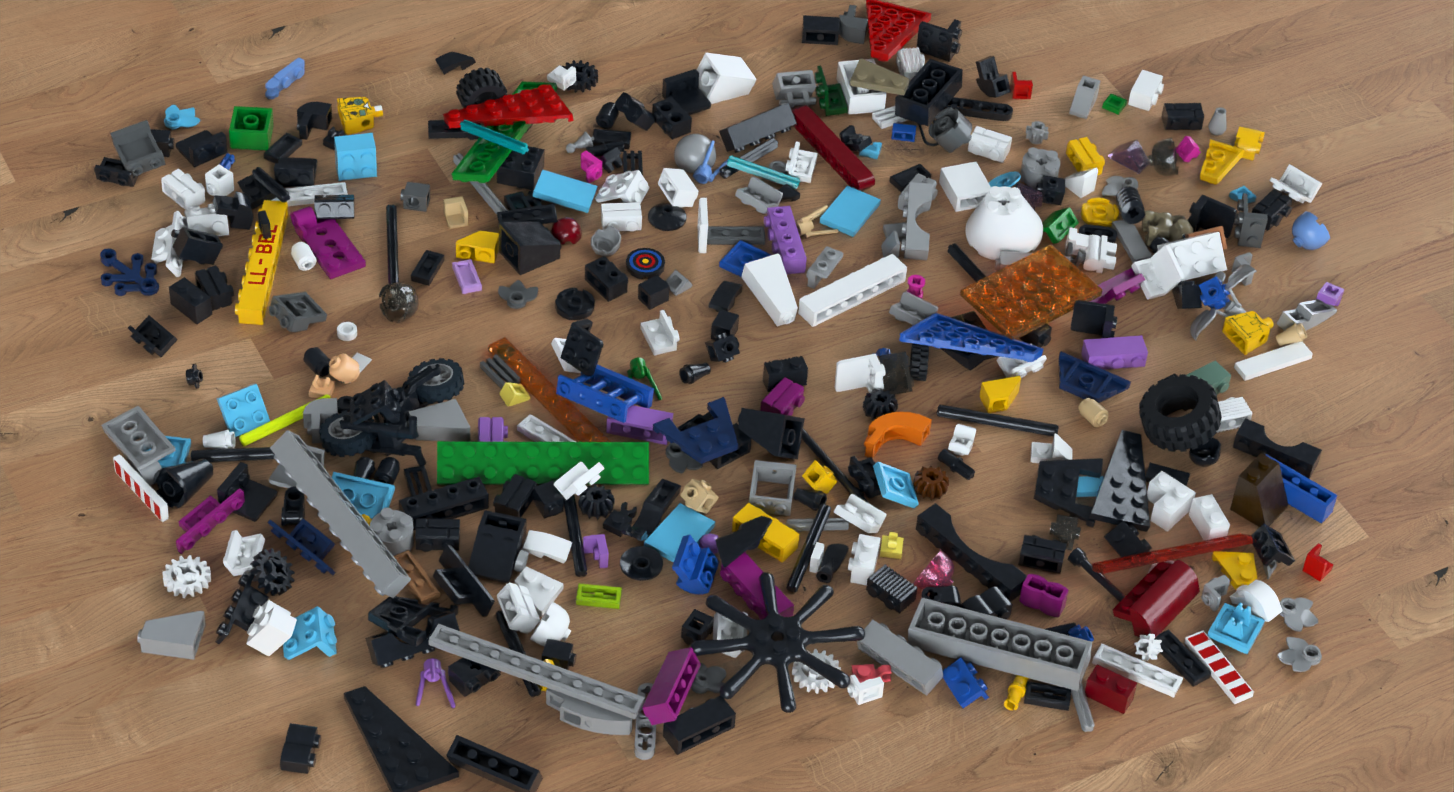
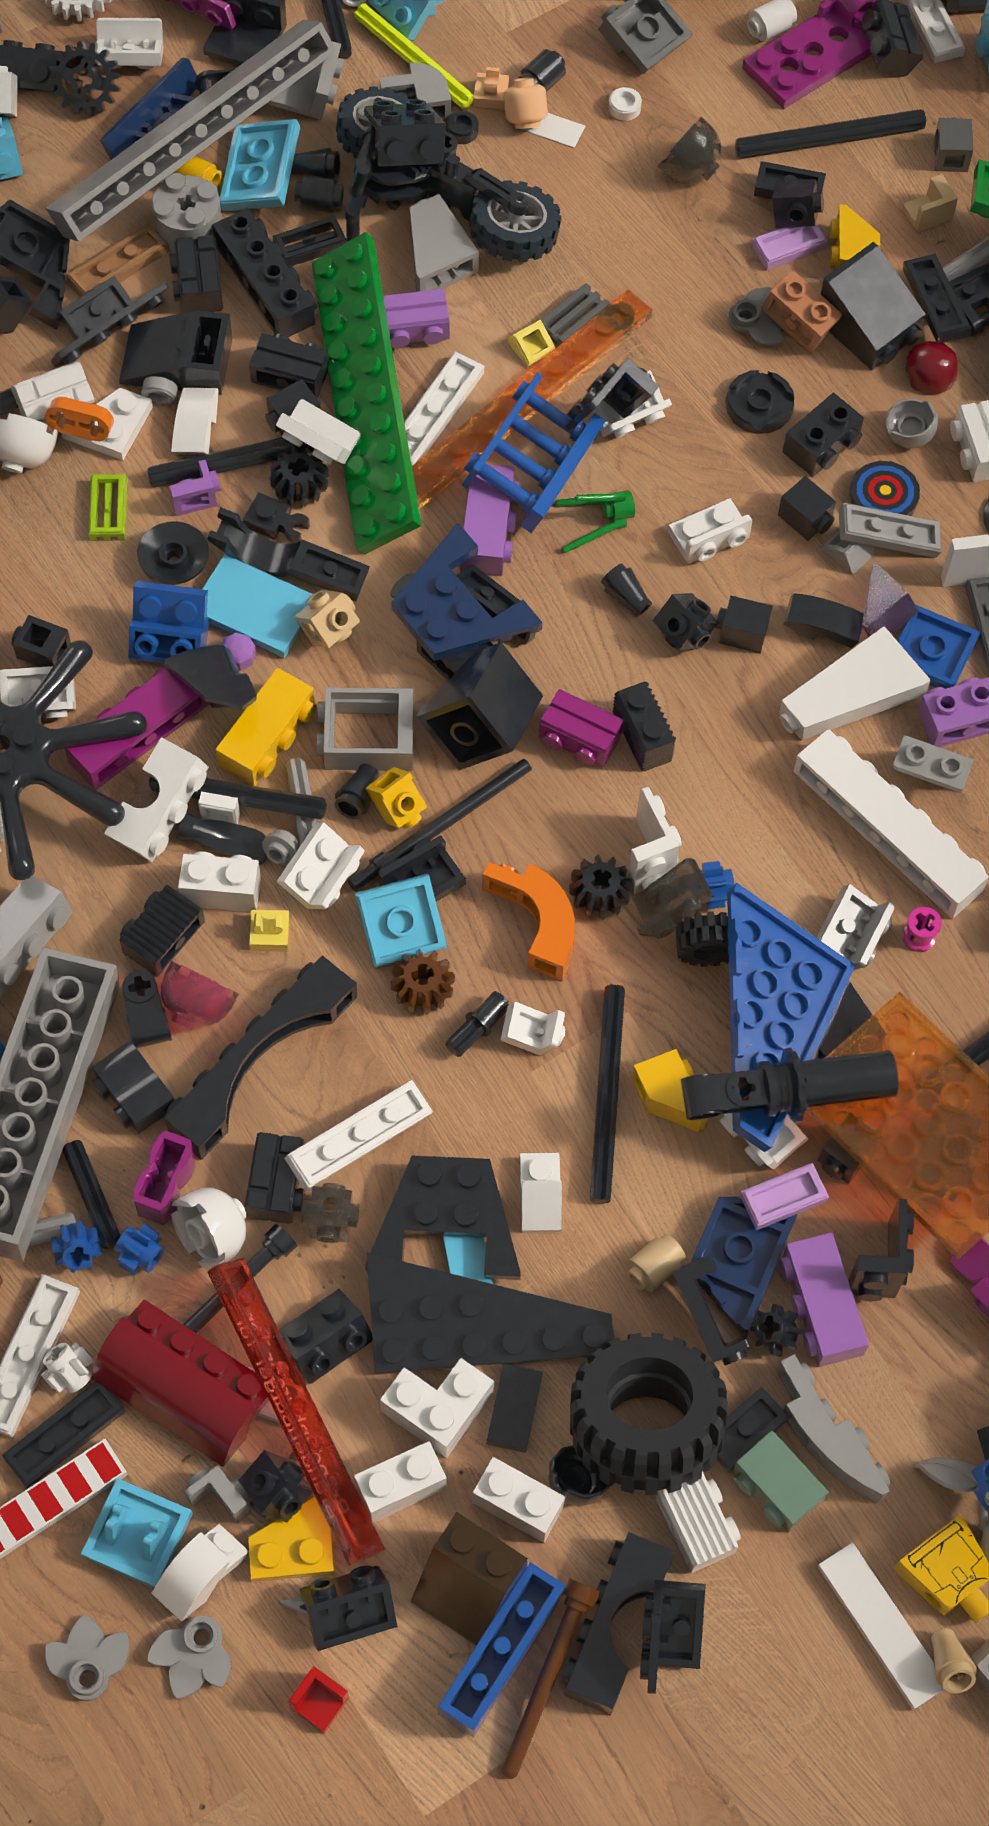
camera: 85 degrees right, 20 degrees up
(447, 263) = (796, 203): none -> black brick
(527, 271) = (801, 311): none -> nougat bracket
(545, 590) = (79, 419): none -> orange beam
(674, 260) = (889, 530): none -> light grey tile
(720, 268) = (886, 603): none -> slope
(802, 564) = (147, 829): none -> white arch
(843, 533) = (280, 846): none -> light grey plate
(1018, 326) = (792, 1085): none -> black piece
(1021, 514) = (358, 1135): none -> white tile
(1062, 356) = (784, 1196): none -> lavender tile
(1076, 576) = (210, 1225): none -> white cylinder
(1082, 612) = (139, 1249): none -> blue gear
(1121, 389) = (701, 1313): none -> black panel
(1136, 369) = (780, 1339): none -> black gear
(1188, 360) = (836, 1447): none -> light grey slope
(1209, 569) = (275, 1486): none -> black brick
(1218, 475) = (518, 1499): none -> white brick
(1288, 424) = (672, 1628): none -> black bracket
(1341, 497) = (578, 1600): none -> reddish brown piece

